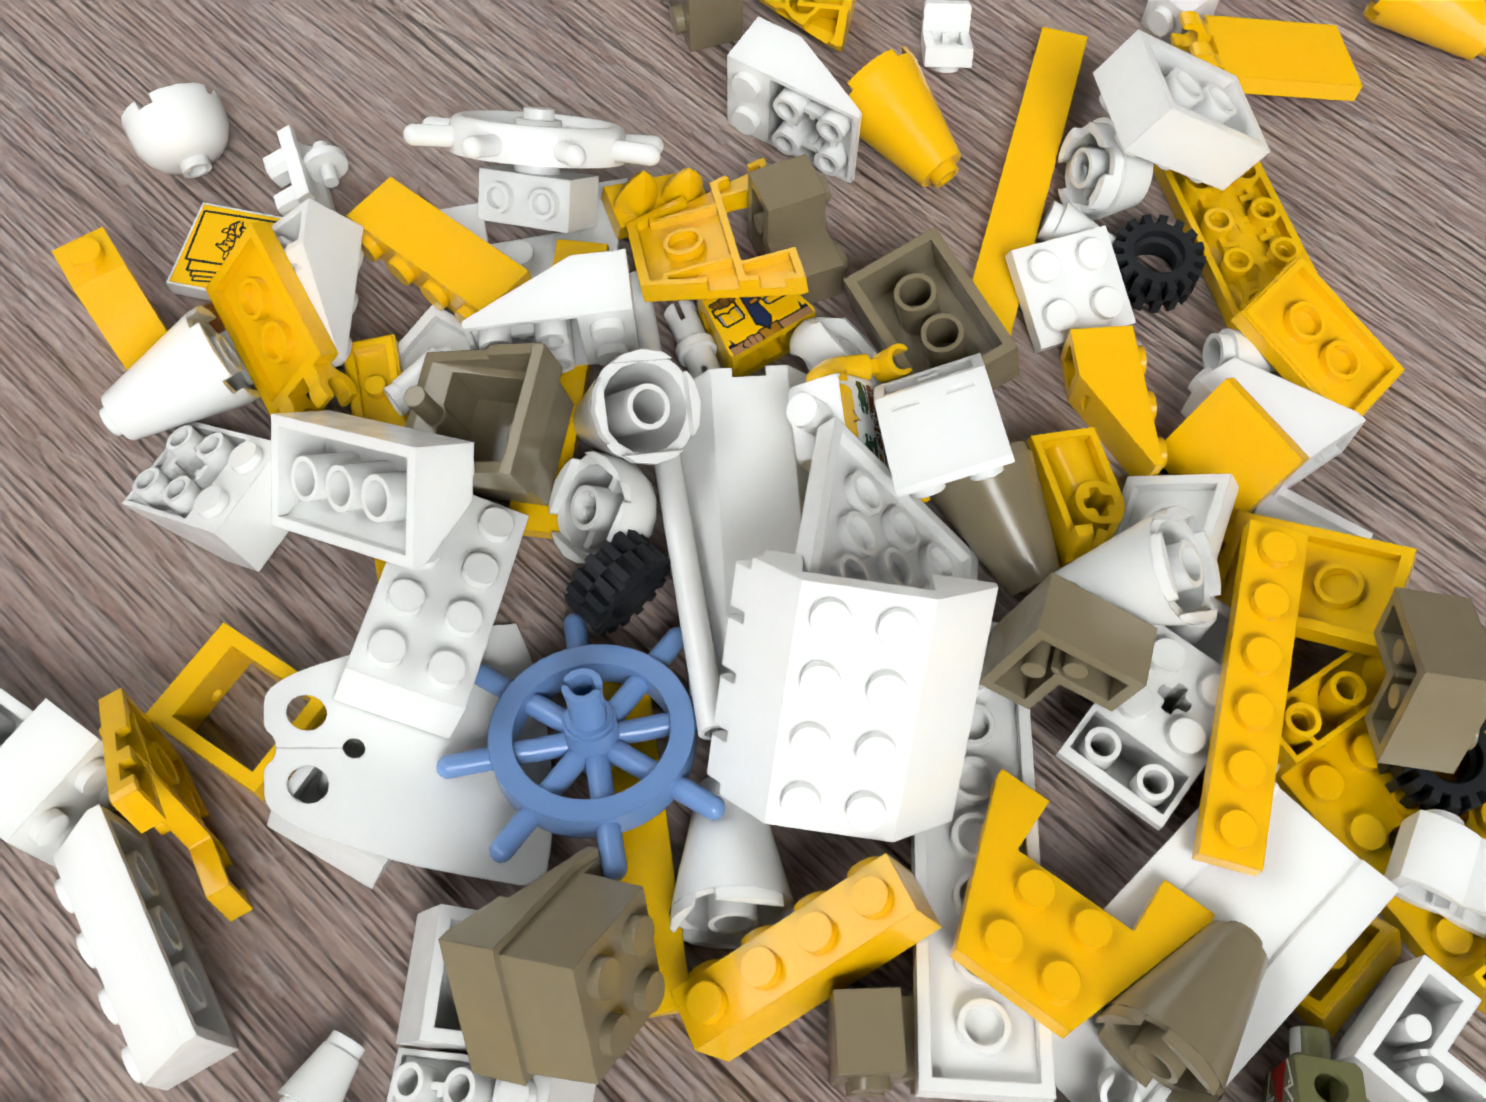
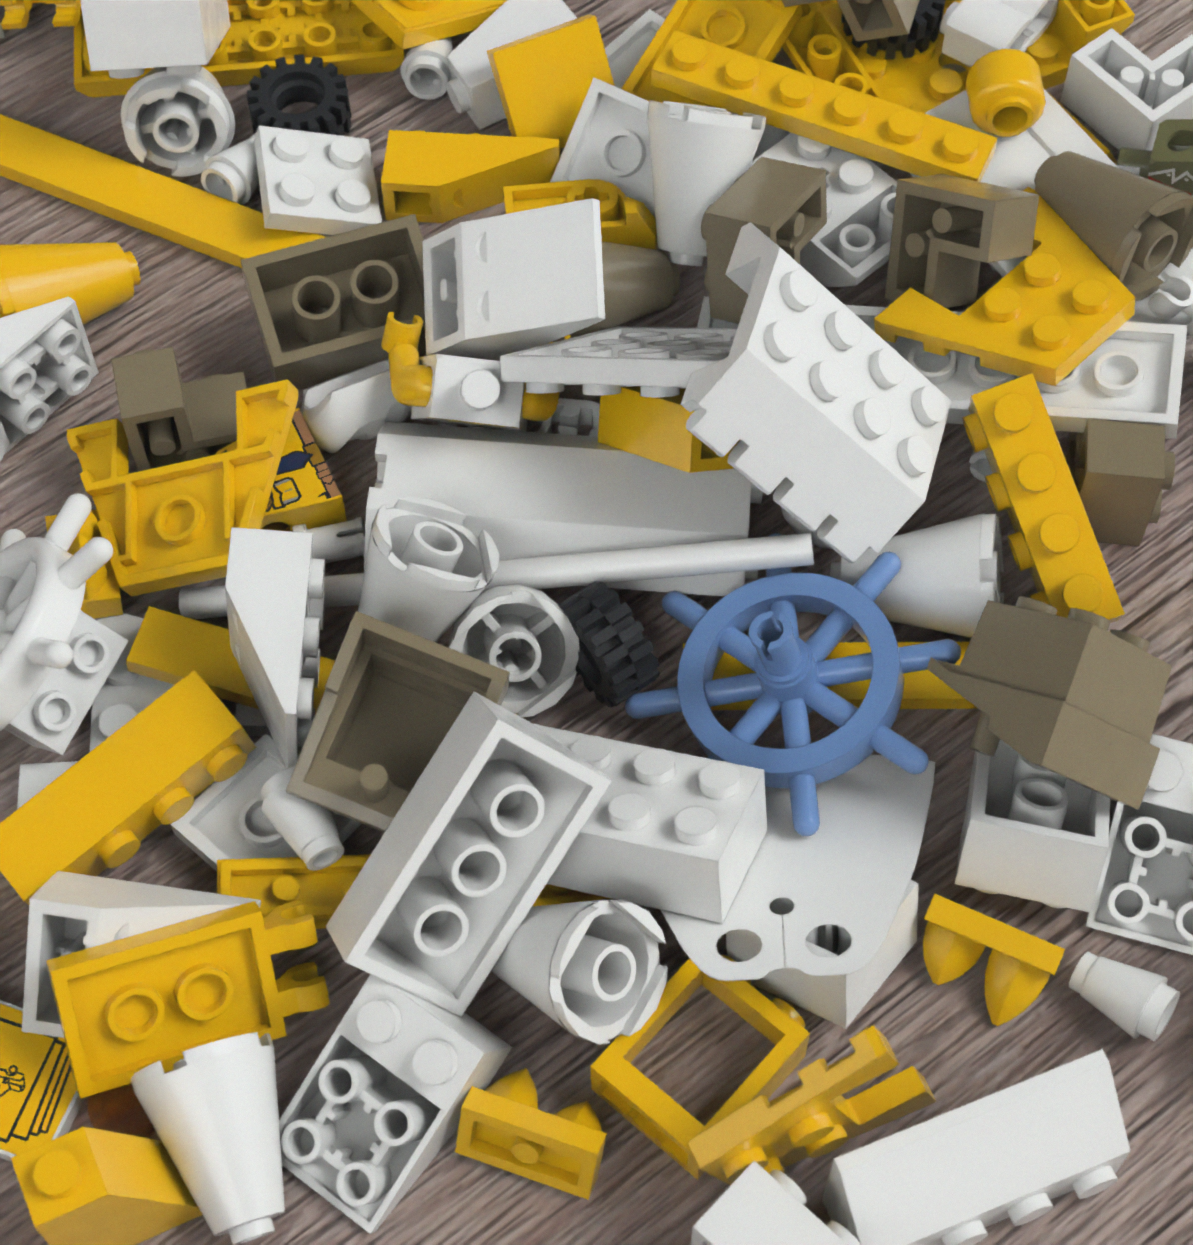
camera: 80 degrees left, 5 degrees down
(197, 575) = (512, 1134): none -> yellow tile
(292, 597) = (588, 966): none -> white cone
(362, 971) = (1015, 967): none -> yellow tile
(1120, 836) = (948, 228): none -> dark tan brick
(1333, 877) = (1005, 92): none -> yellow head

